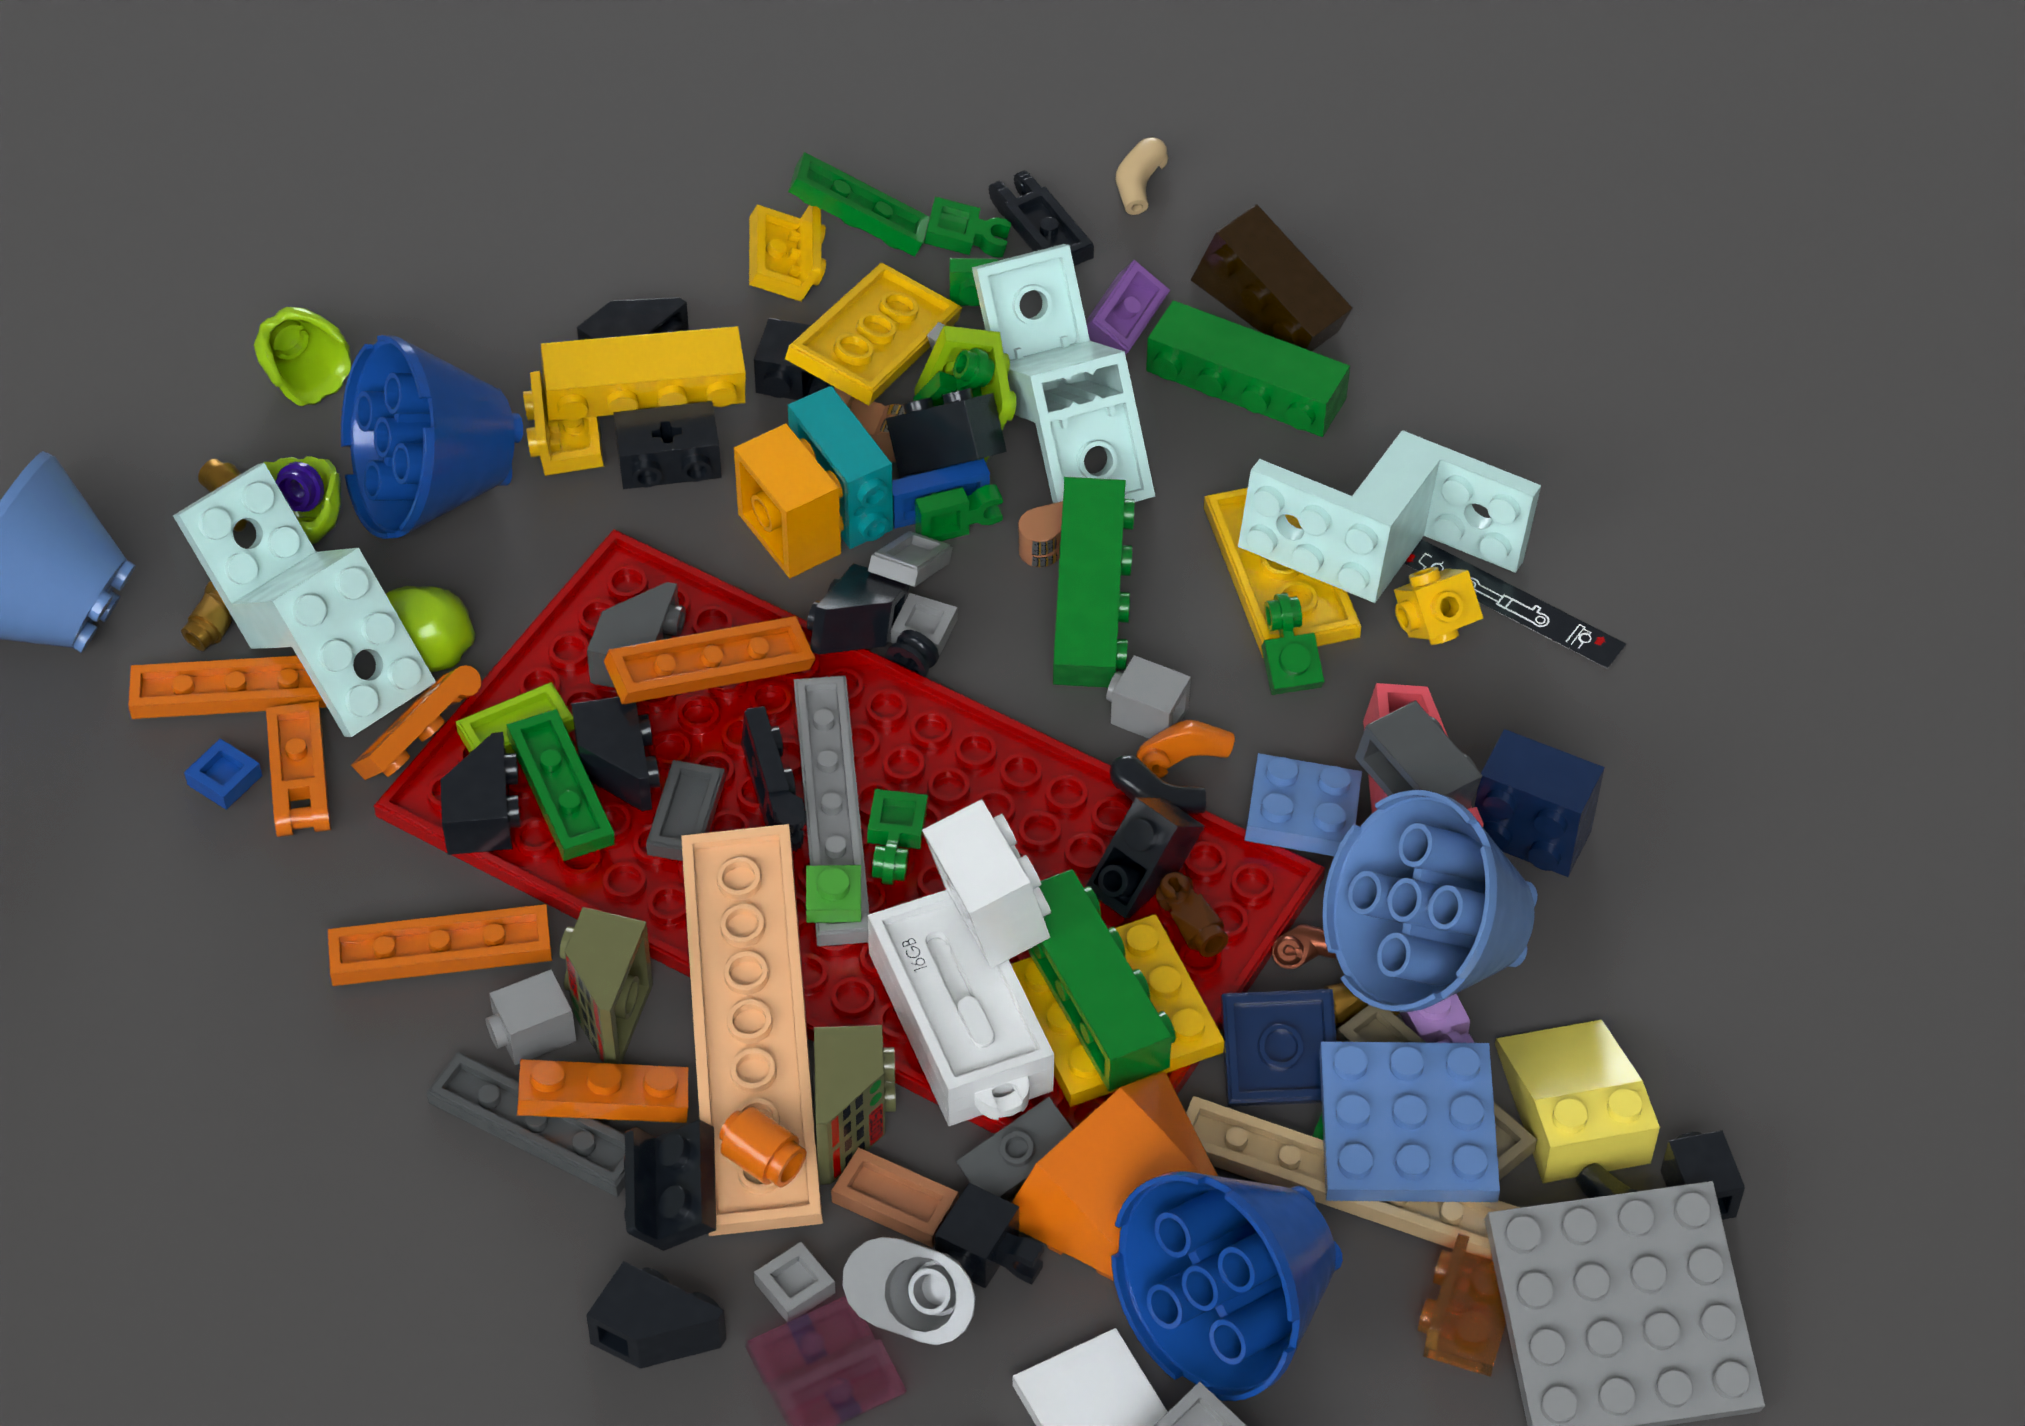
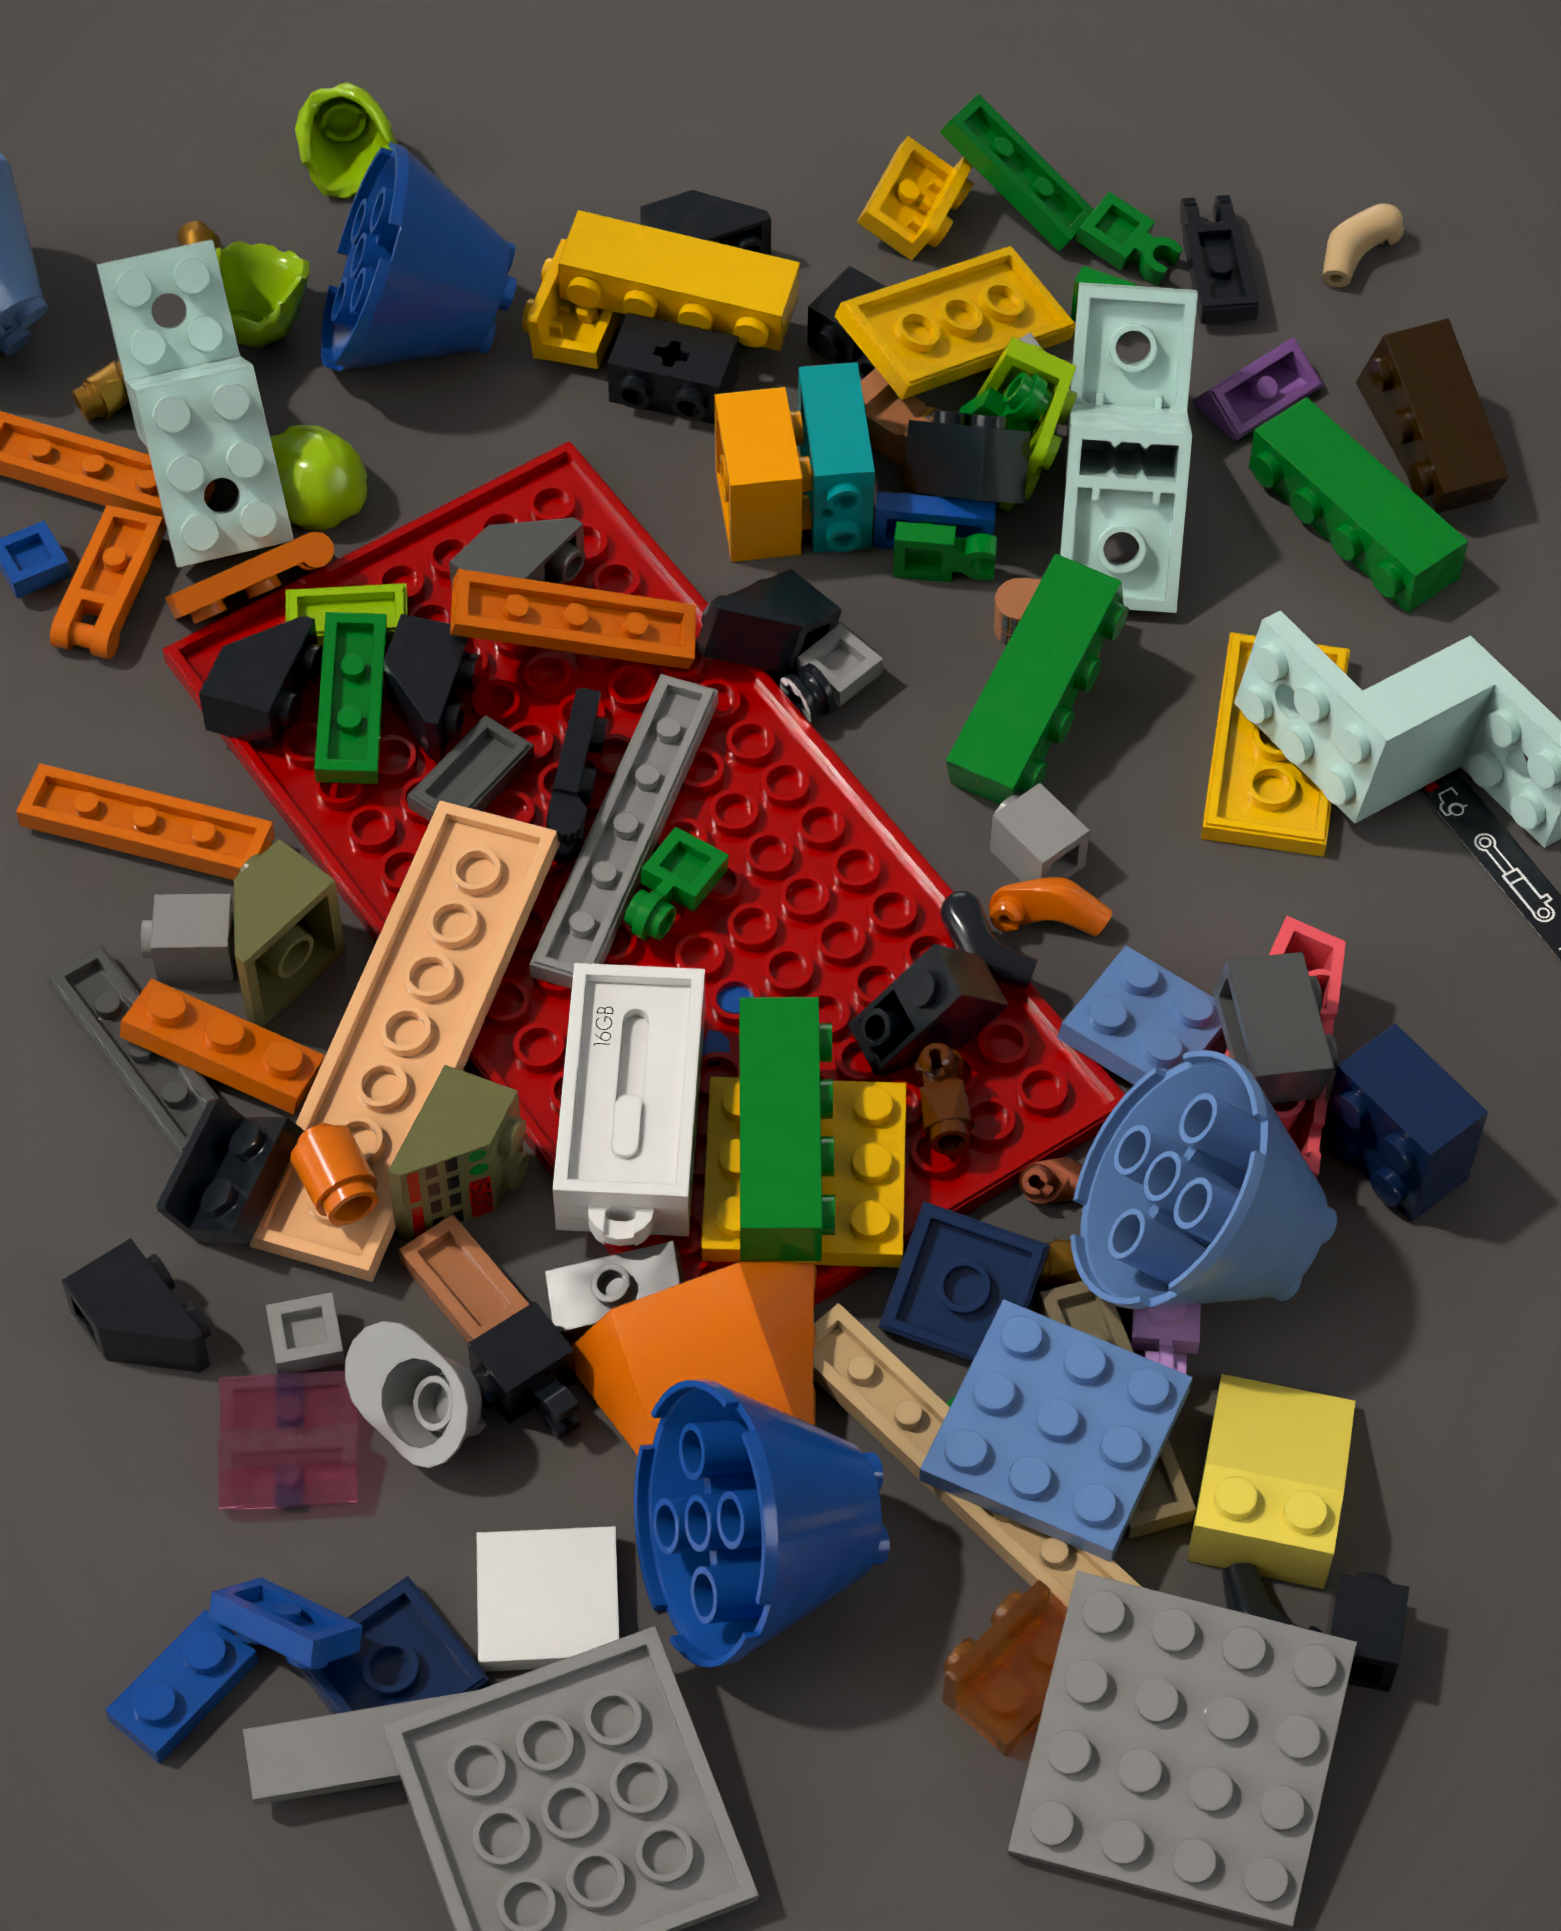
camera: 25 degrees right, 5 degrees up
(300, 498) = (259, 280): dark purple plate -> none
(833, 893) = (567, 925): bright green plate -> none
(910, 558) = (860, 586): light grey tile -> none
(989, 881) = (699, 977): white brick -> none
(1290, 660) = (1225, 853): green plate -> none
(1437, 604) = (1436, 864): yellow brick -> none

